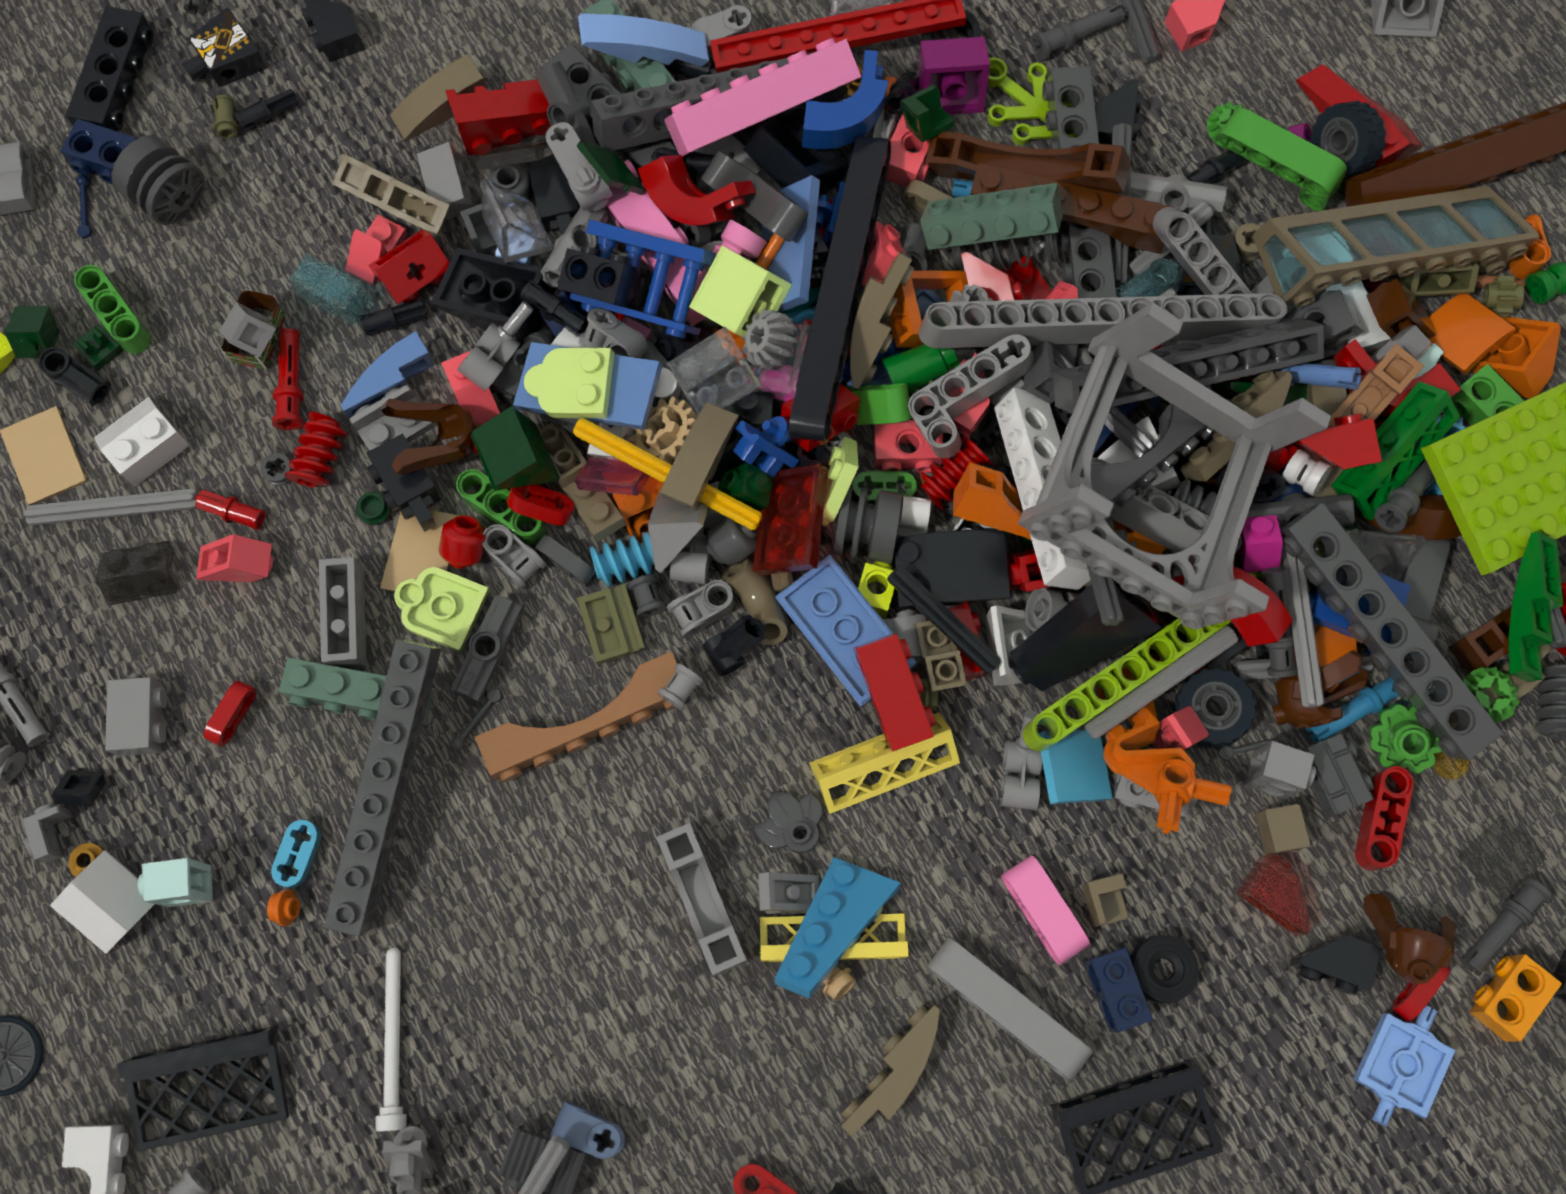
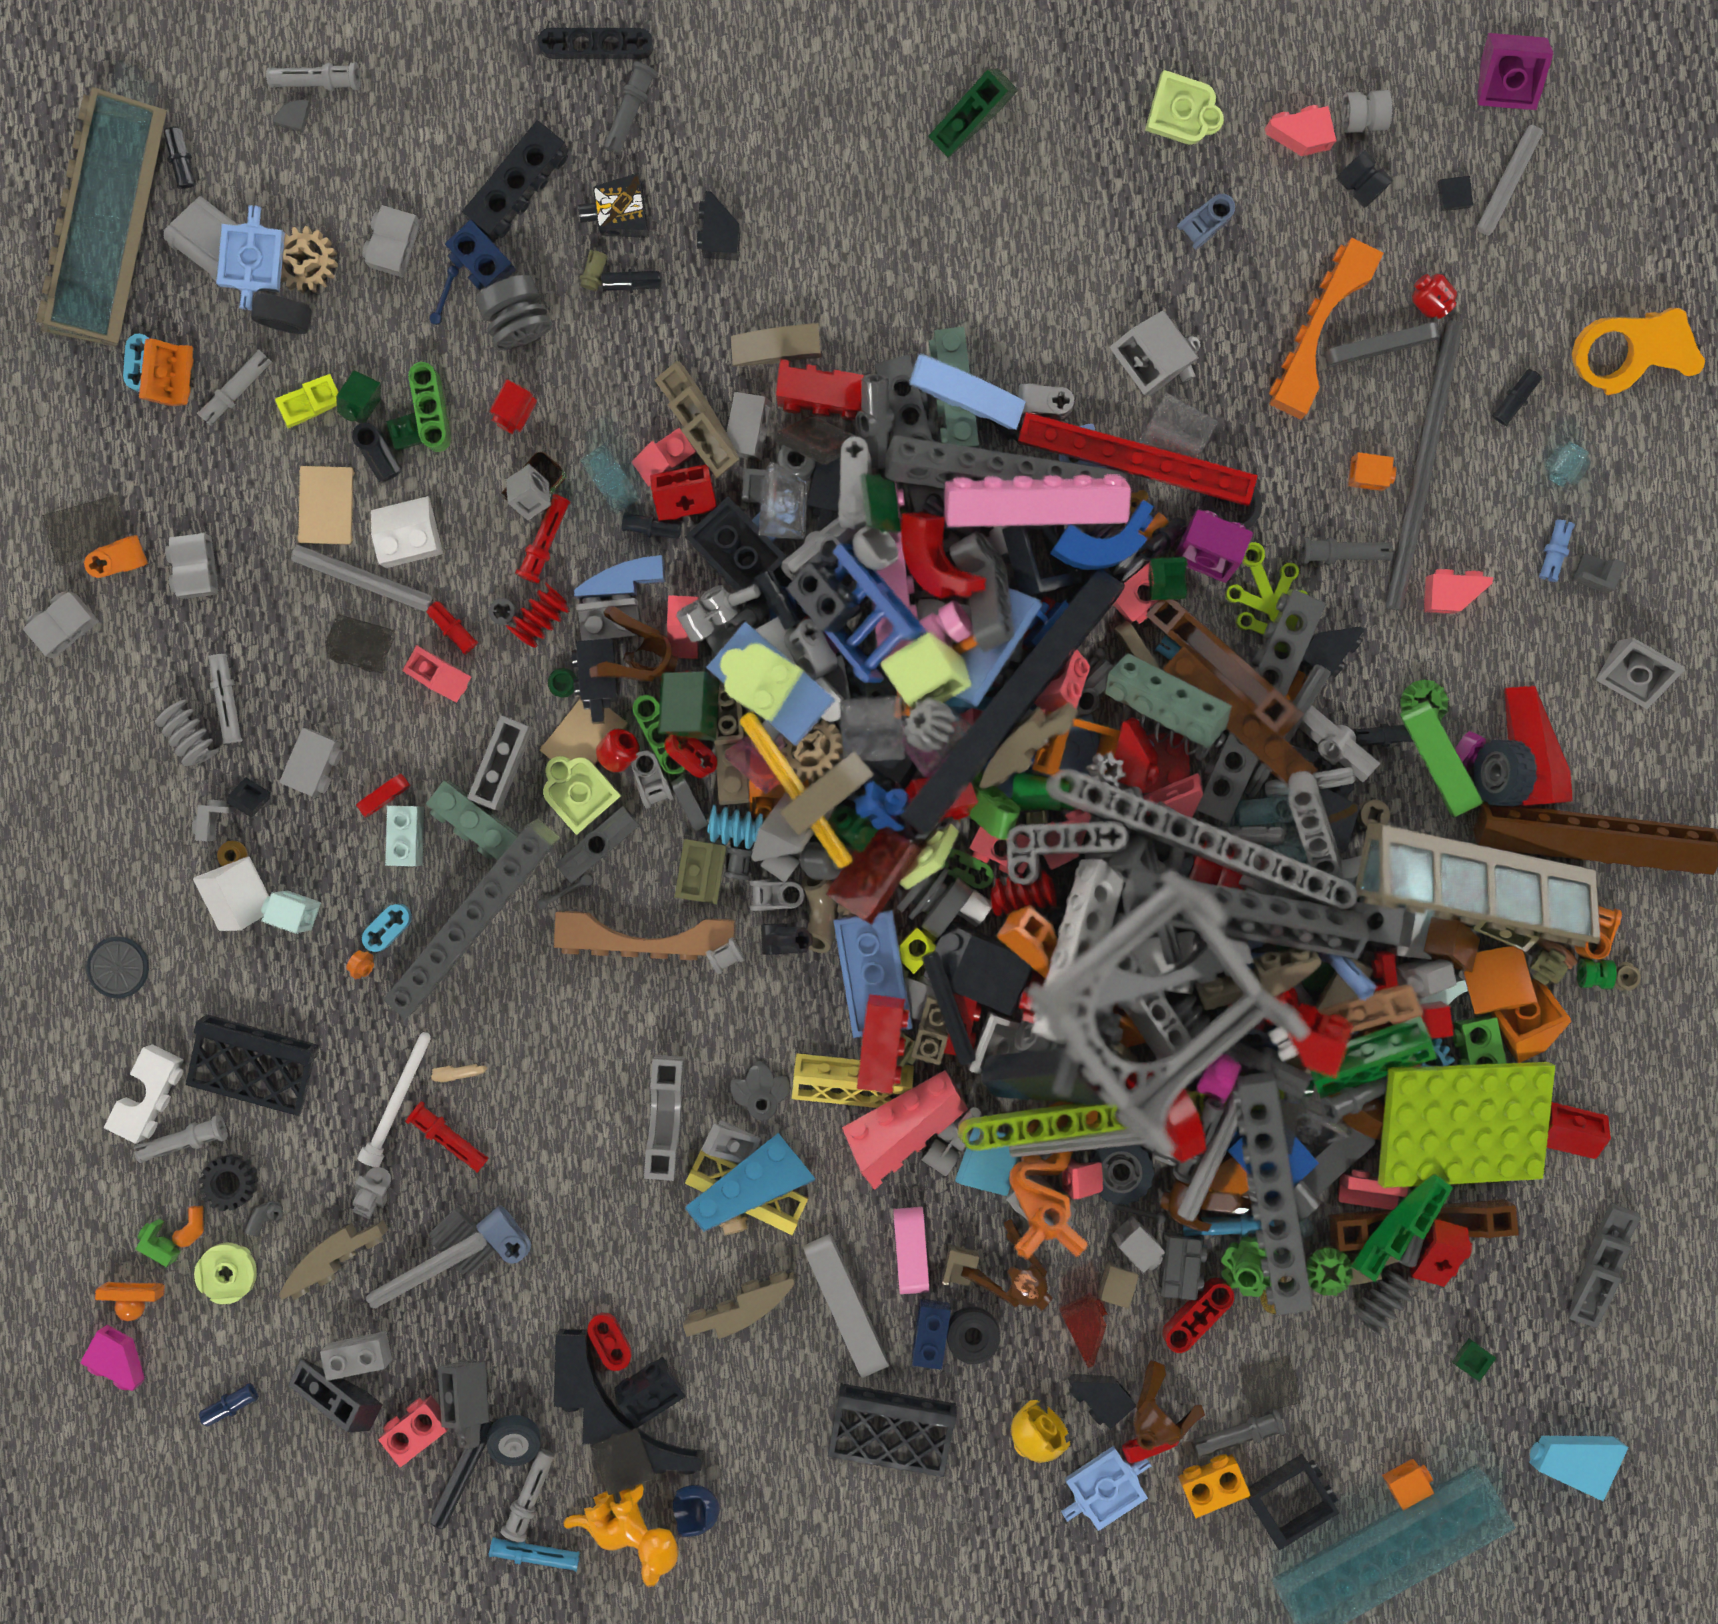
camera: 30 degrees right, 15 degrees up
(196, 264) = (512, 407): none -> red brick
(271, 742) = (404, 836): none -> light aqua brick
(440, 980) = (449, 1073): none -> tan piece
(452, 1050) = (436, 1129): none -> red pin
(625, 209) = (875, 548): none -> light grey hair
(963, 773) = (903, 1126): none -> coral wedge
(1191, 875) = (1027, 1285): none -> reddish brown piece
(1296, 1041) = (1038, 1439): none -> yellow cylinder
(1474, 597) = (1364, 1190): none -> coral bracket

